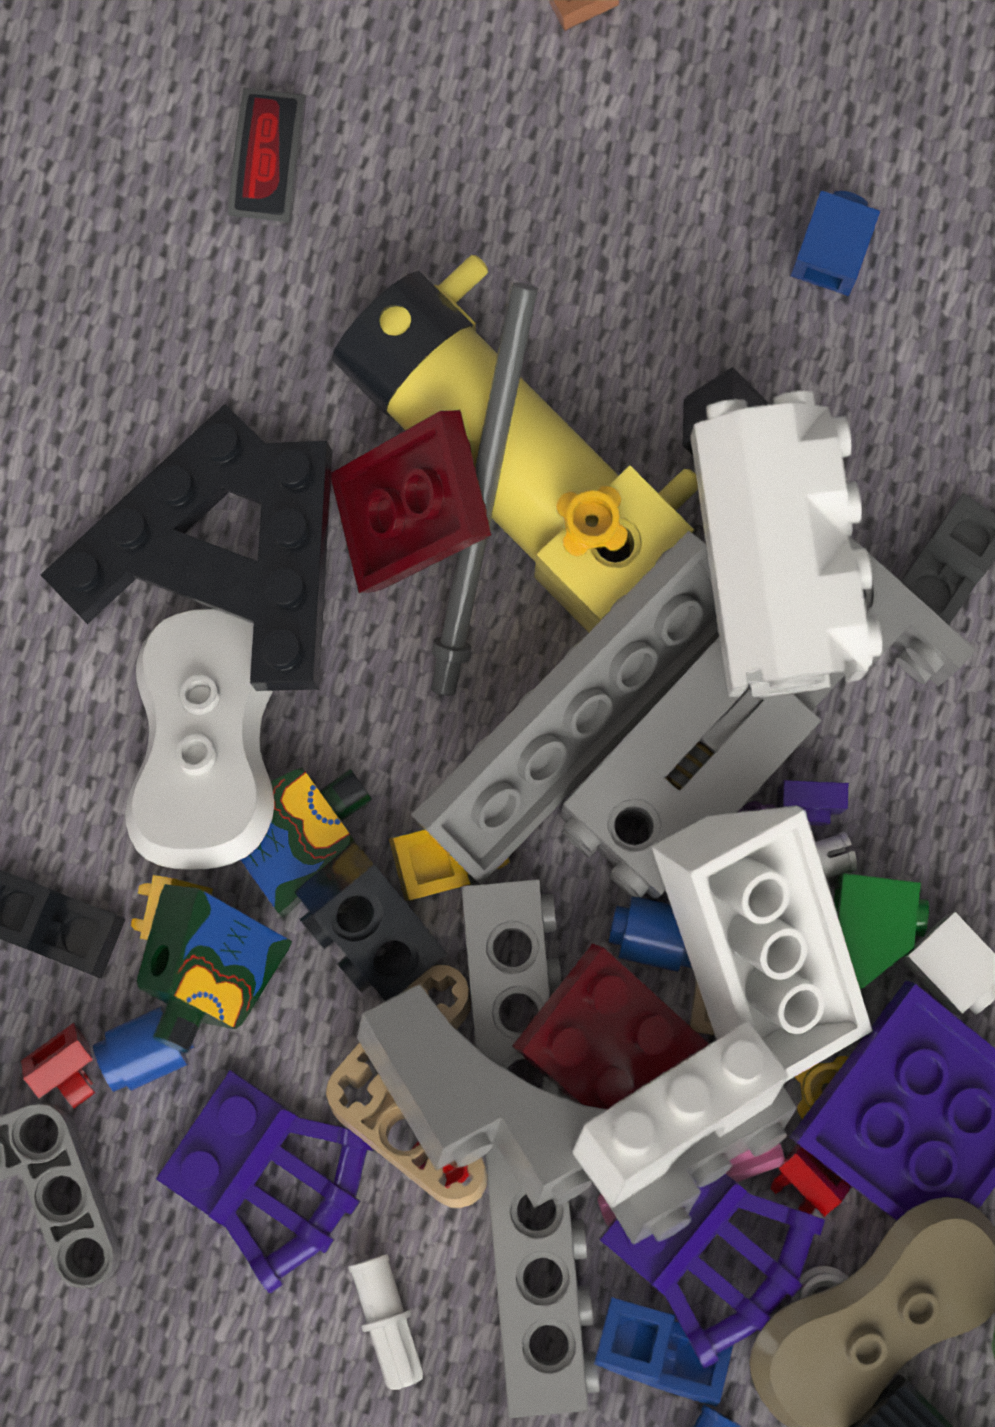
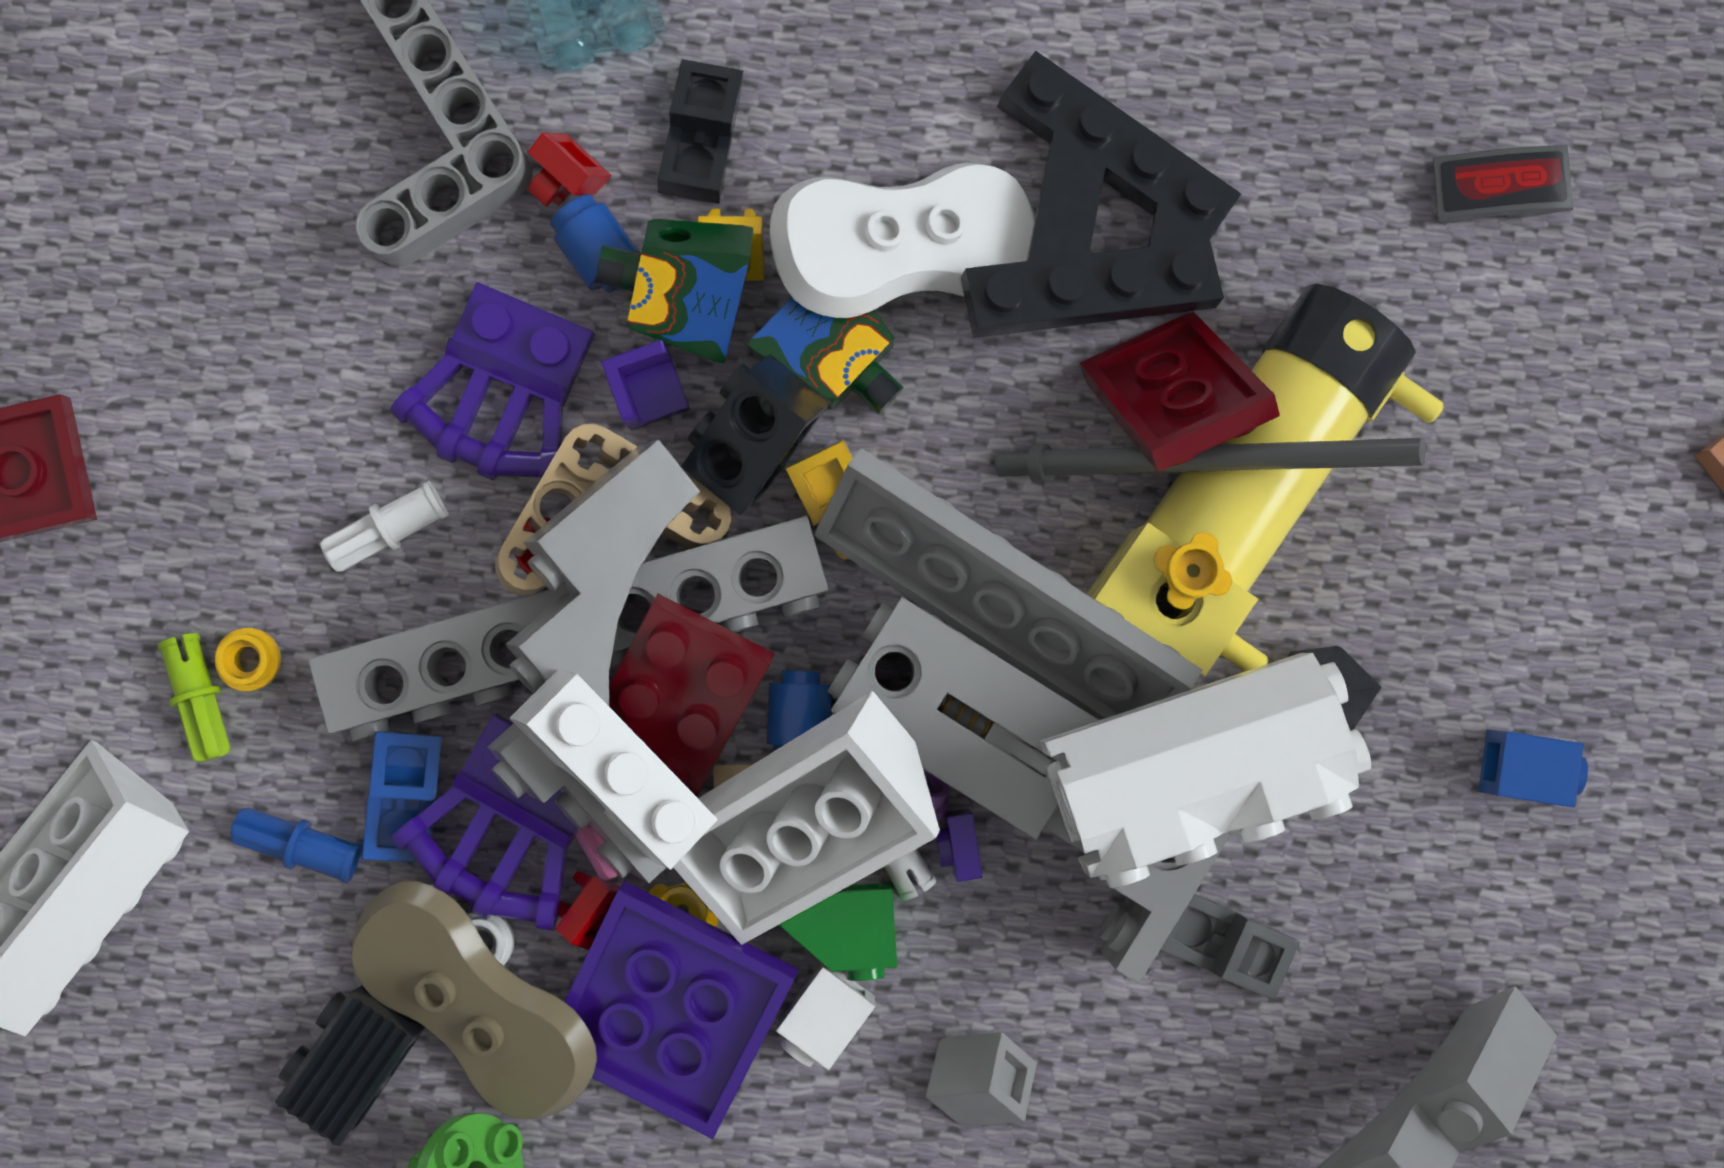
camera: 80 degrees right, 5 degrees up
(297, 1024) = (645, 385): none -> dark purple panel

